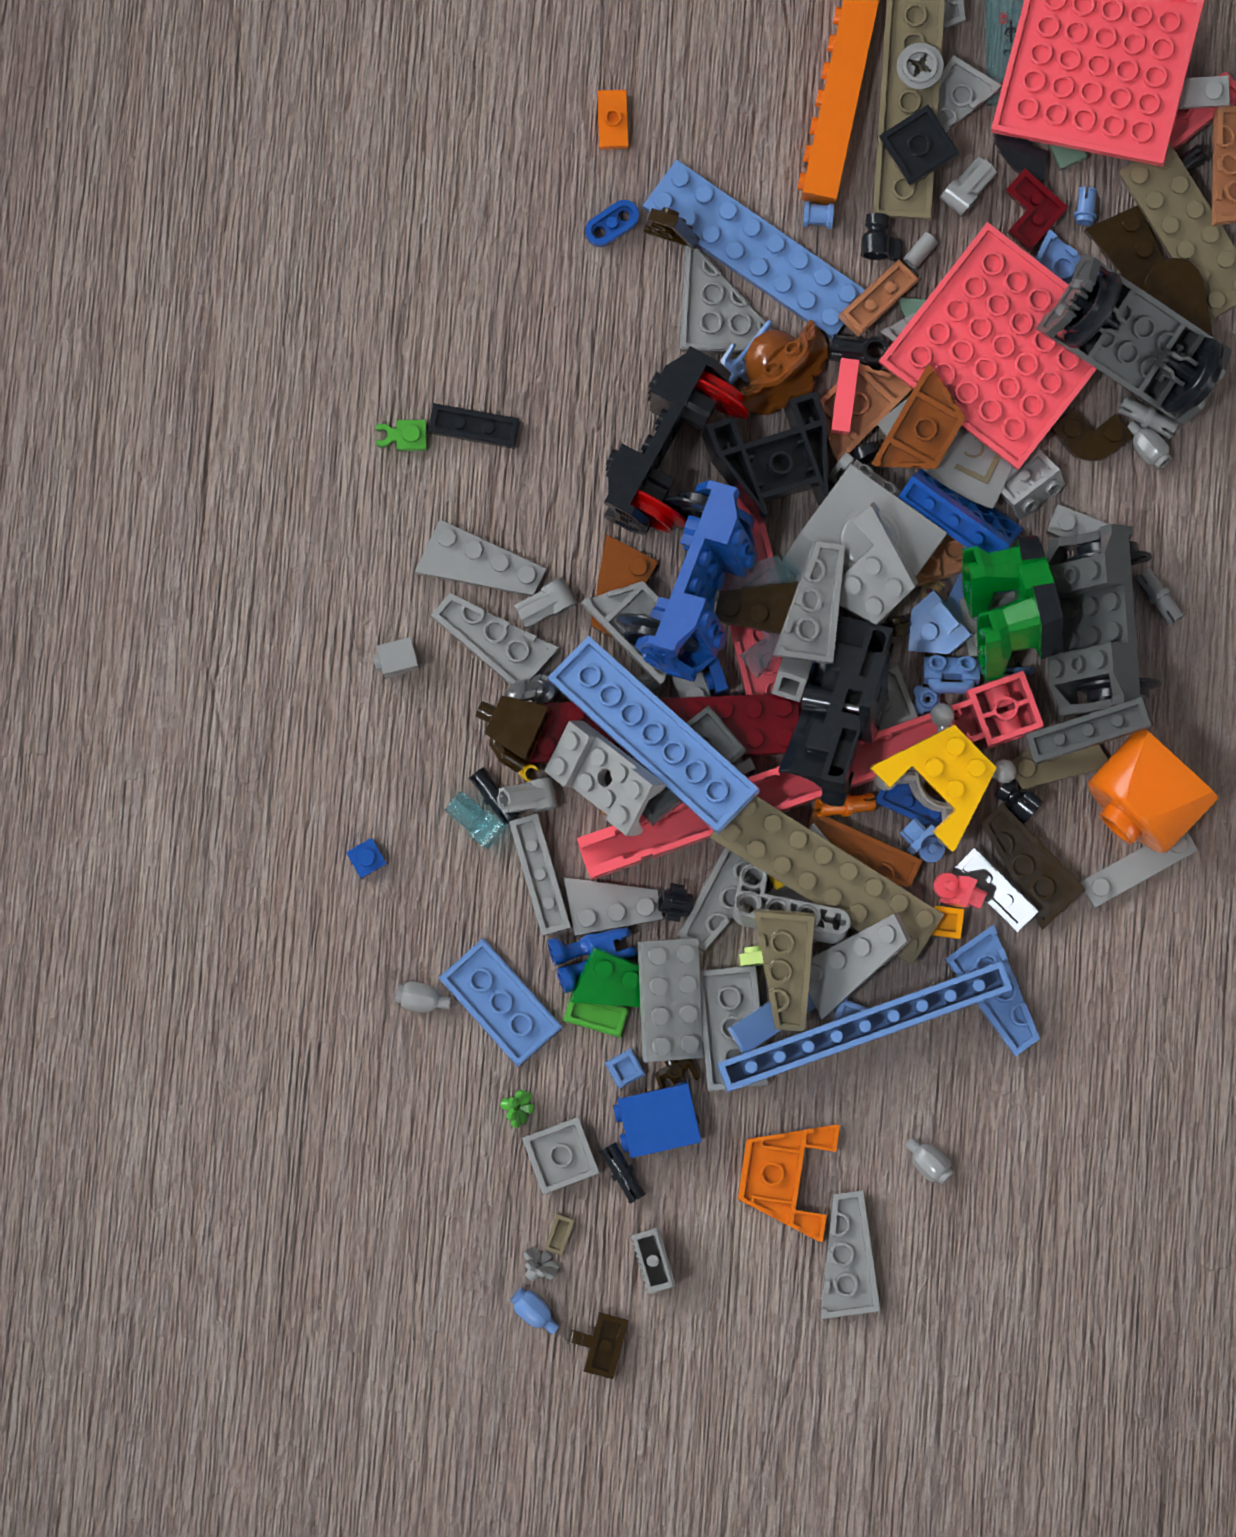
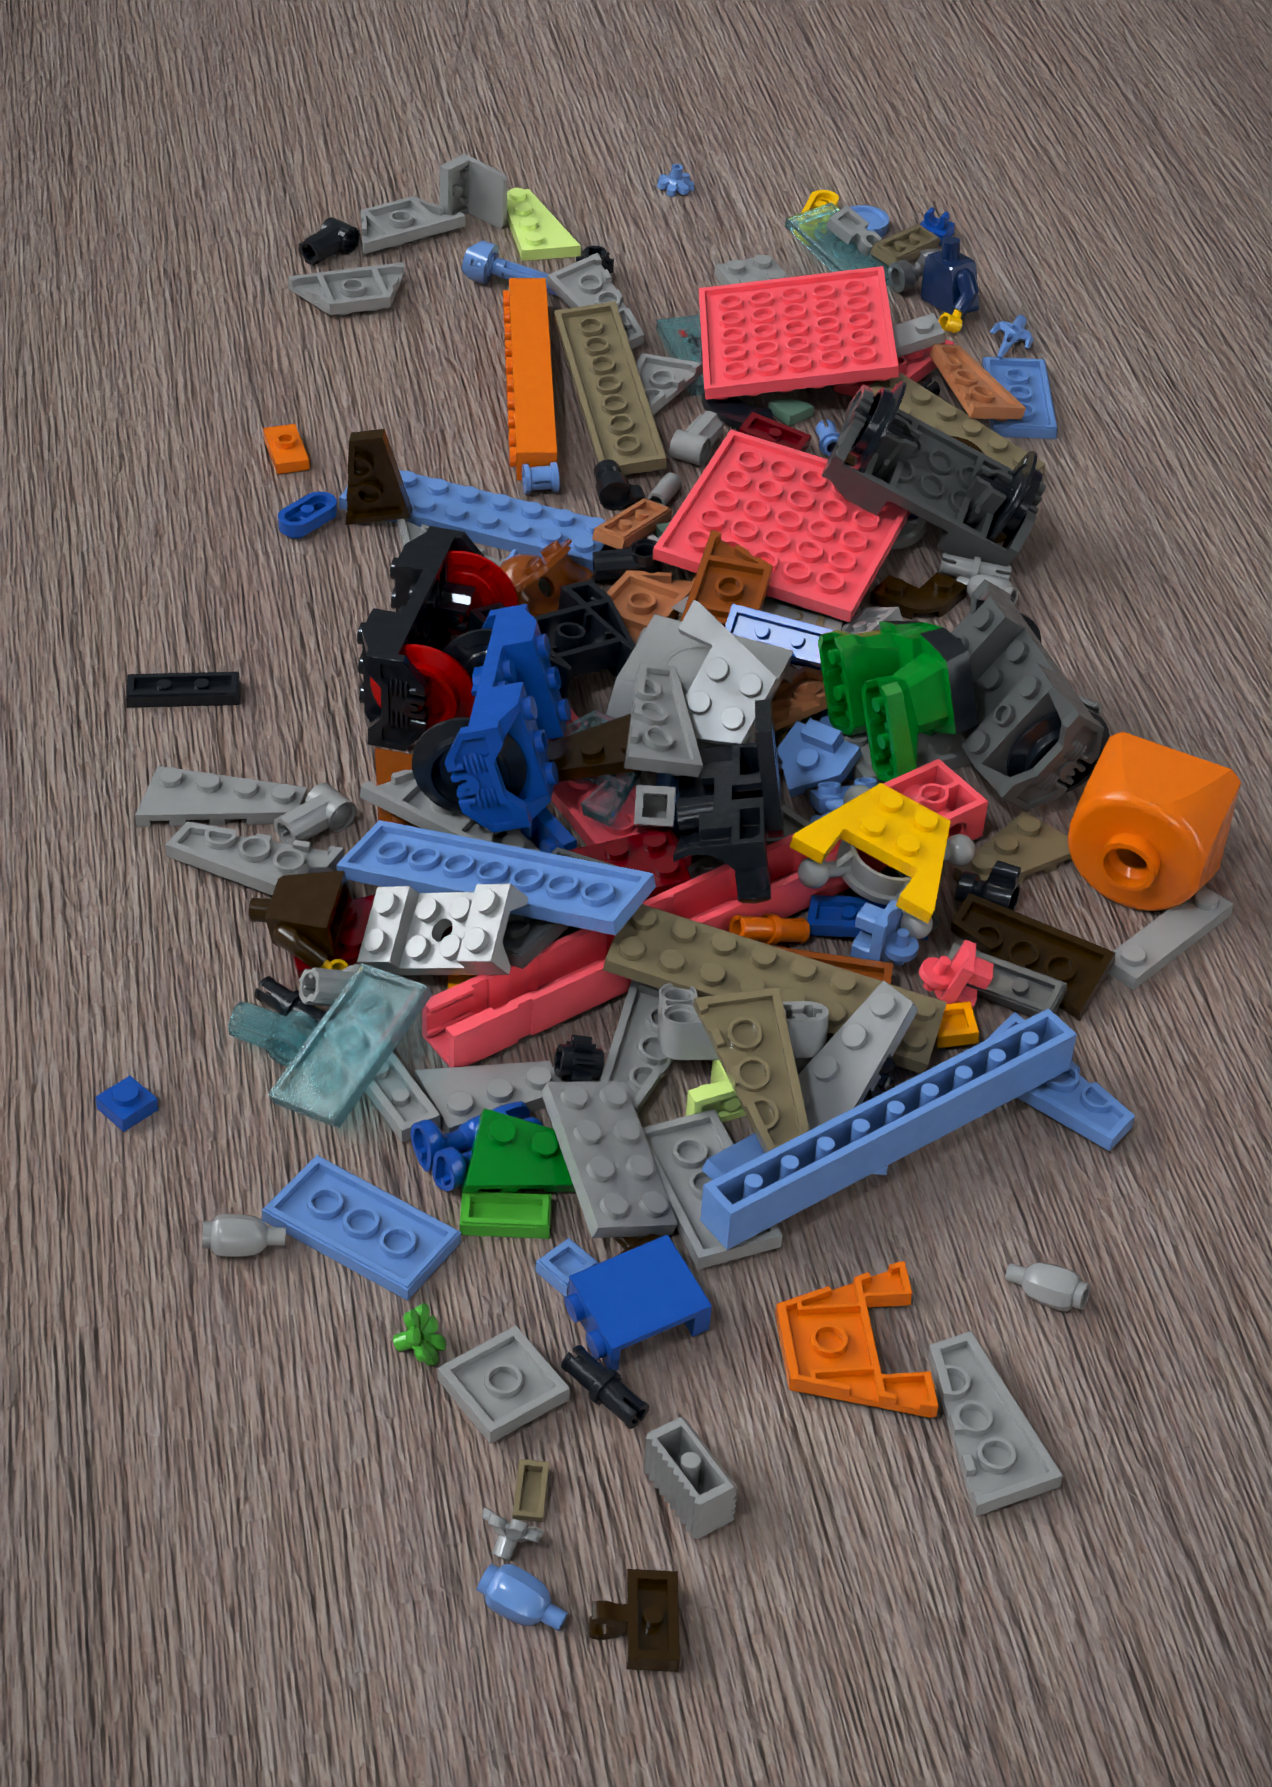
camera: 15 degrees left, 40 degrees down
(395, 657) = (128, 892): light grey brick -> none
(408, 435) = (98, 708): bright green plate -> none
(522, 856) = (350, 1045): none -> clear light blue tile
(844, 396) = (625, 588): coral piece -> none
(916, 53) = (599, 347): light grey gear -> none
(919, 145) = (632, 406): black tile -> none
(1089, 730) = (1041, 761): dark grey fence -> none

